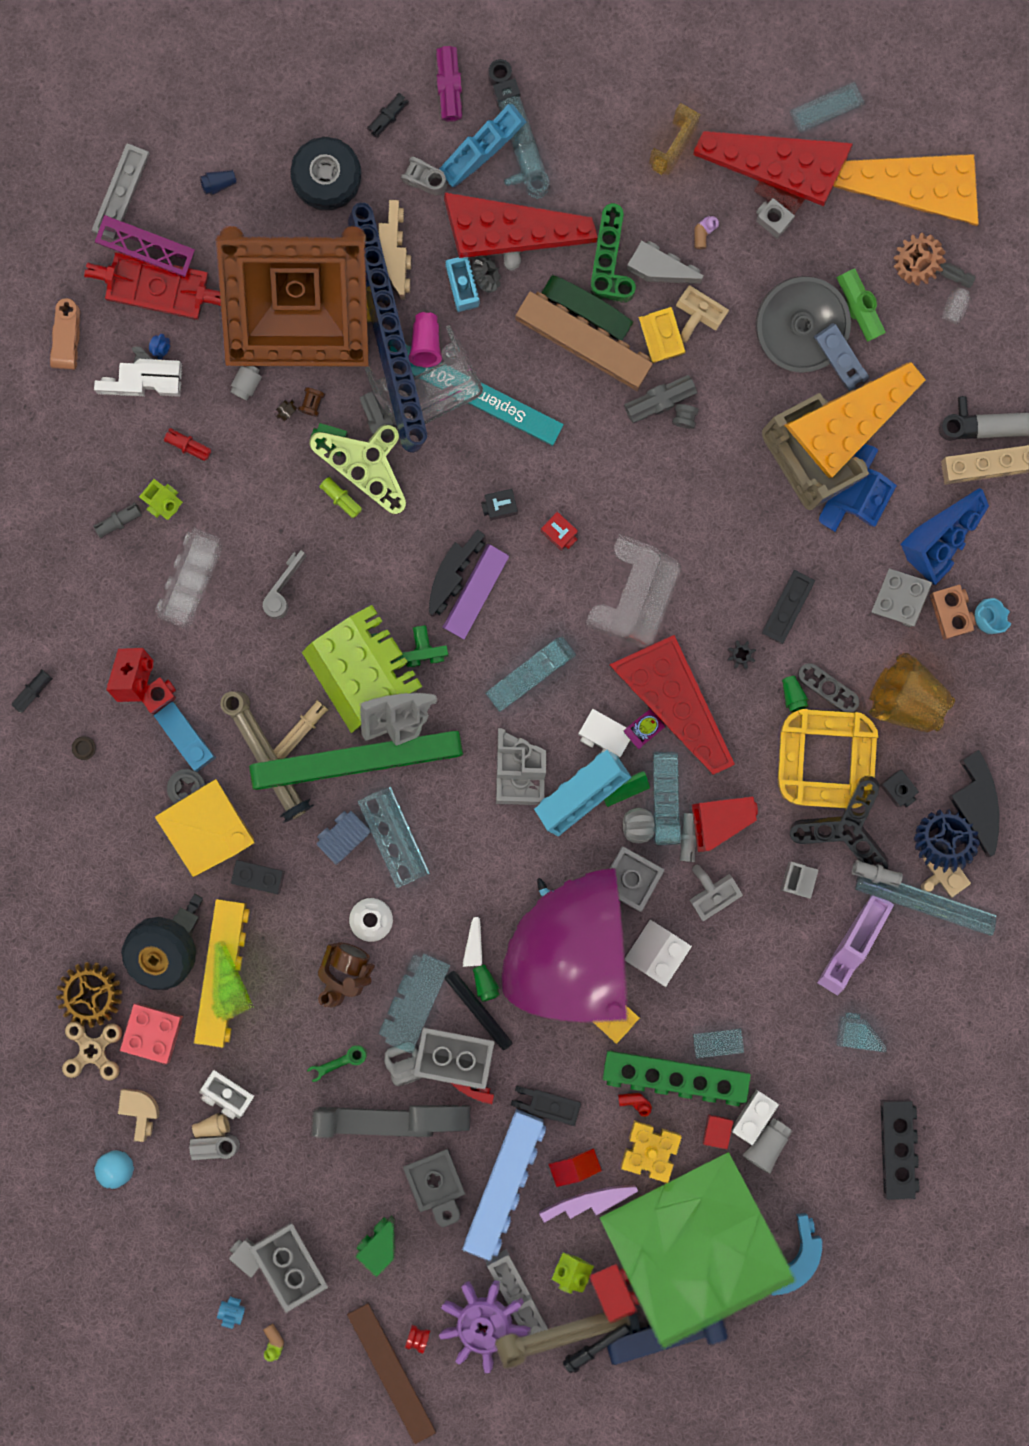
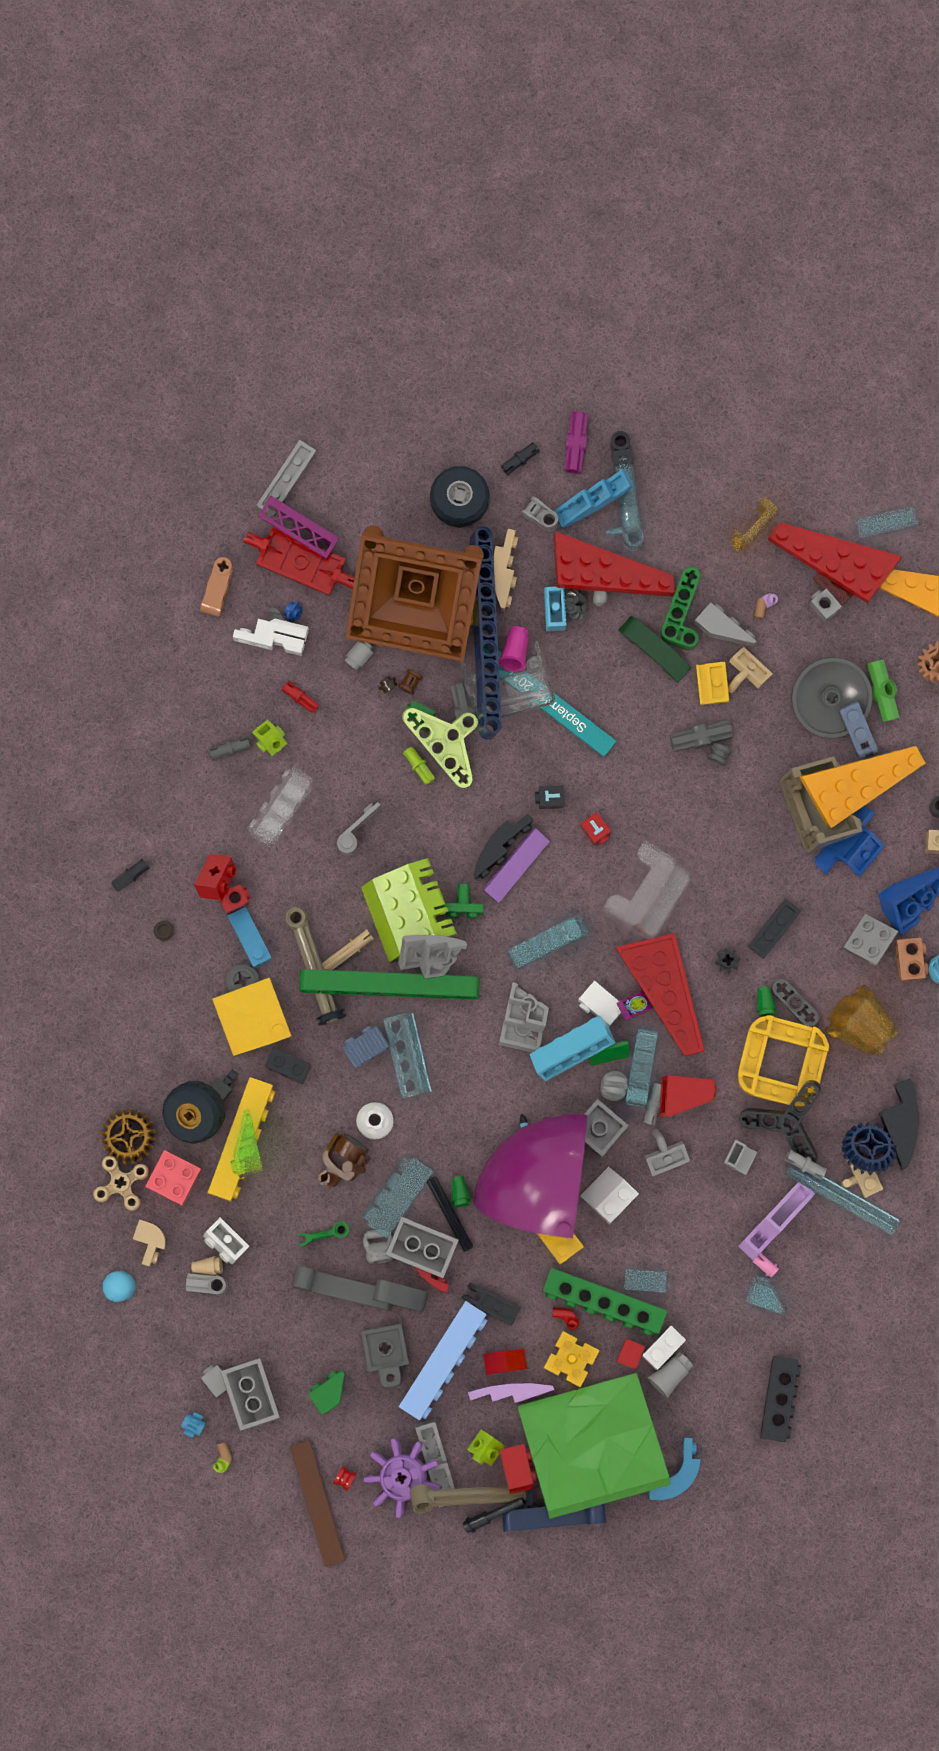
camera: 10 degrees right, 5 degrees down
(217, 181) = (368, 485): dark blue cone -> none
(473, 950) = (455, 1163): white slope -> none
(584, 341) = (646, 675): medium nougat brick -> none
(853, 998) = (766, 1265): none -> bright pink pin
(900, 789) = (838, 1098): black brick -> none

